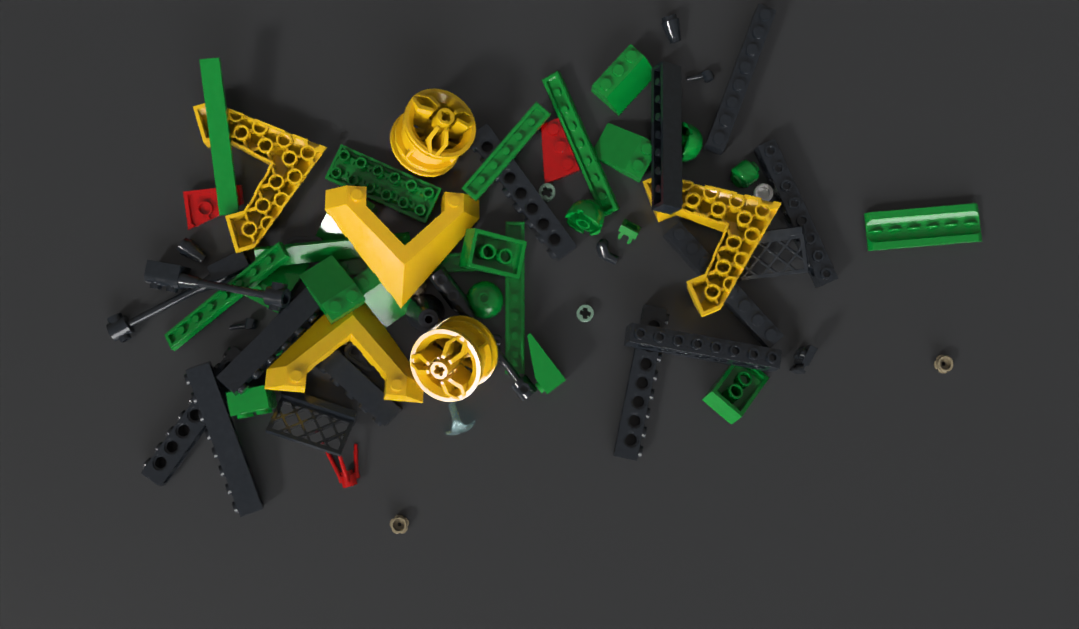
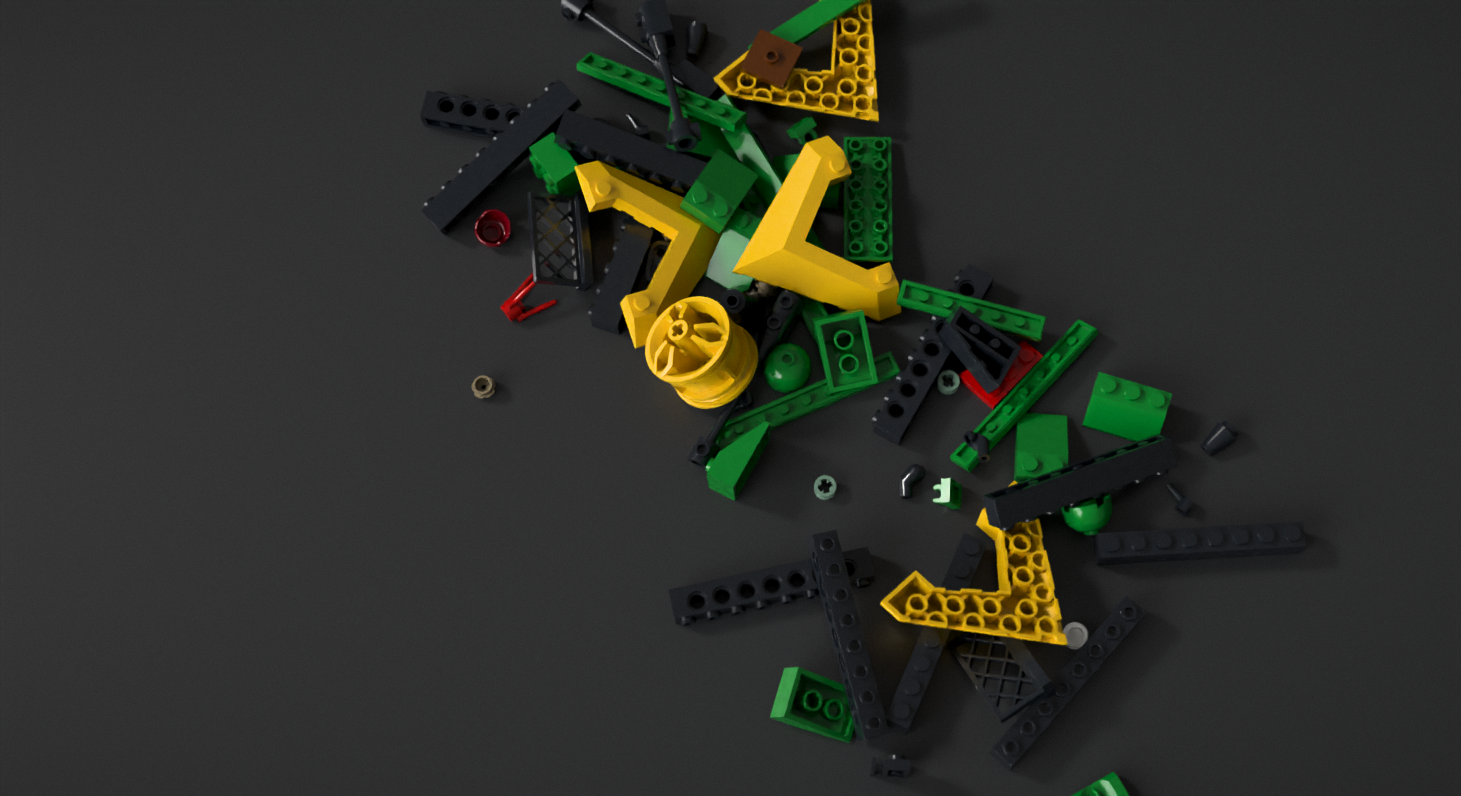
camera: 75 degrees right, 15 degrees down
(203, 205) = (746, 25): red wing -> none
(241, 203) = (771, 59): none -> reddish brown plate
(278, 467) = (493, 228): none -> dark red hair
(303, 205) = (801, 128): none -> green tile
(438, 117) = (973, 215): yellow wheel -> none
(457, 425) = (626, 396): clear light blue plant -> none
(539, 159) = (979, 347): none -> black wedge
(585, 216) = (940, 435): green cylinder -> none
(606, 192) = (979, 443): none -> black arm
(744, 174) = (1086, 600): green head -> none

